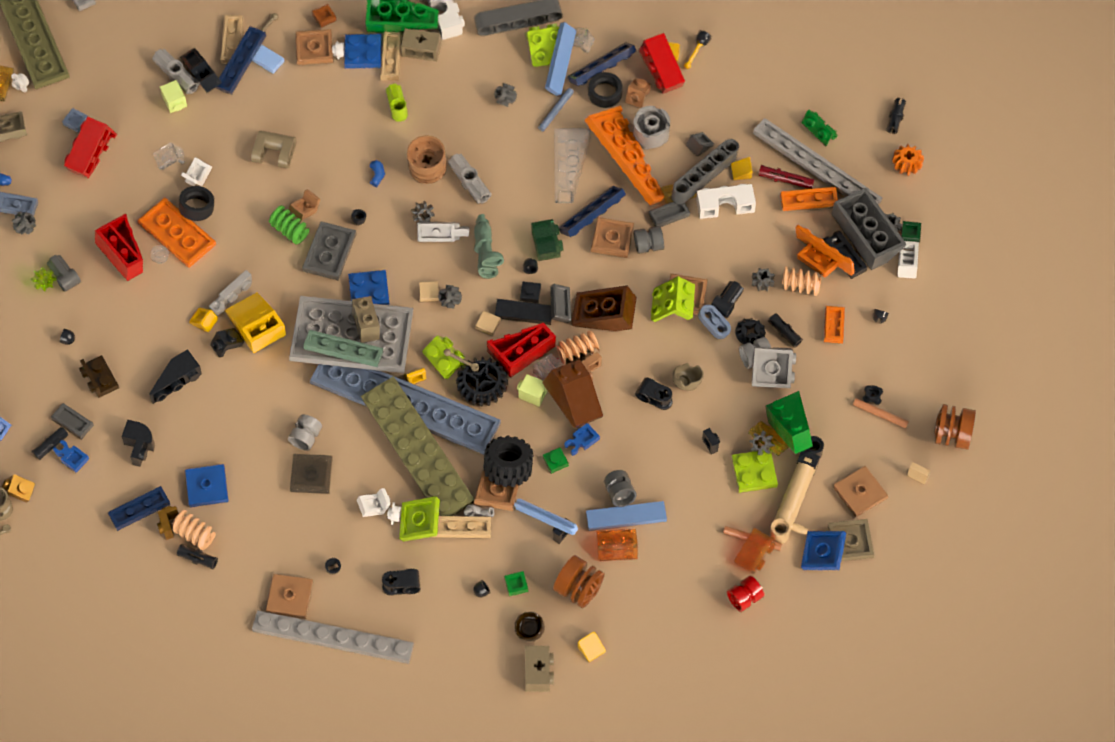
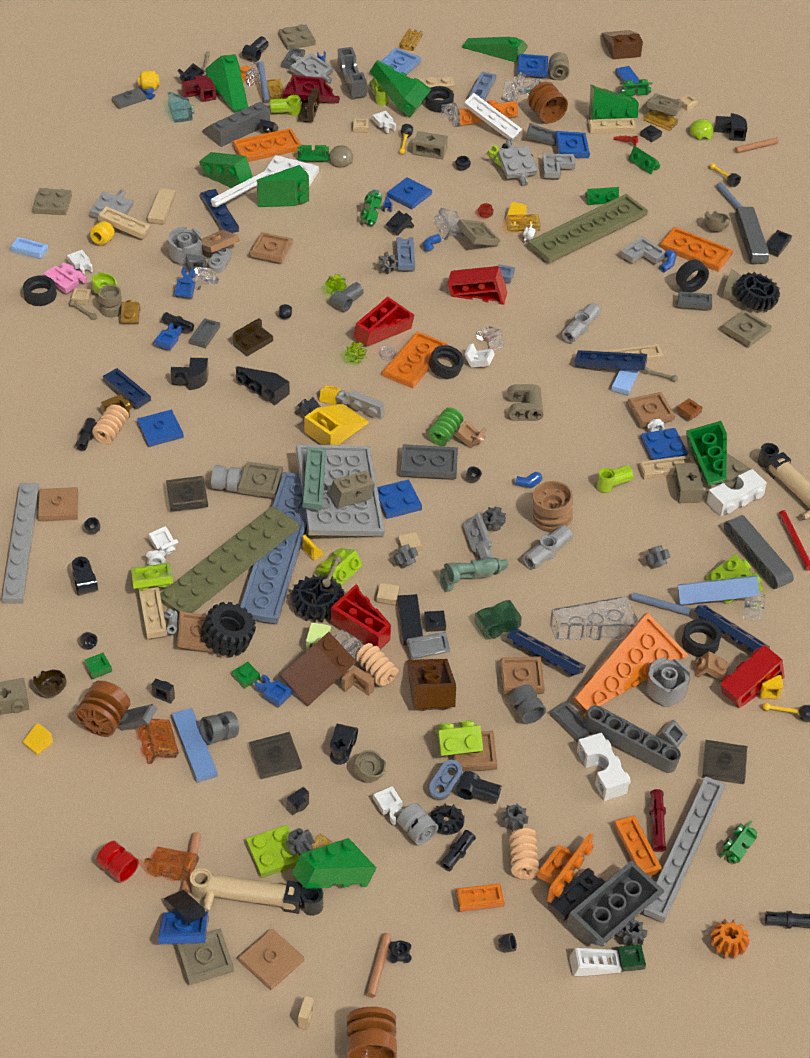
camera: 75 degrees right, 15 degrees down
(162, 282) = (354, 355): none -> clear neon green gear
(173, 96) = (553, 326): yellowish green brick -> none
(200, 70) = (588, 337): black slope -> none
(311, 401) = (260, 479): none -> dark tan plate
(533, 266) = (463, 614): black hinge -> none
(546, 516) = (171, 670): light blue axle -> none
(594, 551) = (137, 717): none -> dark grey tile
(653, 452) = (275, 755): none -> clear smoke plate
(726, 371) = (389, 802): none -> white plate
(737, 113) = (724, 761): none -> clear smoke plate
(742, 169) = (652, 778): yellow slope -> none
(773, 367) = (399, 839): light grey plate -> none
(802, 546) = (184, 907): none -> black tile

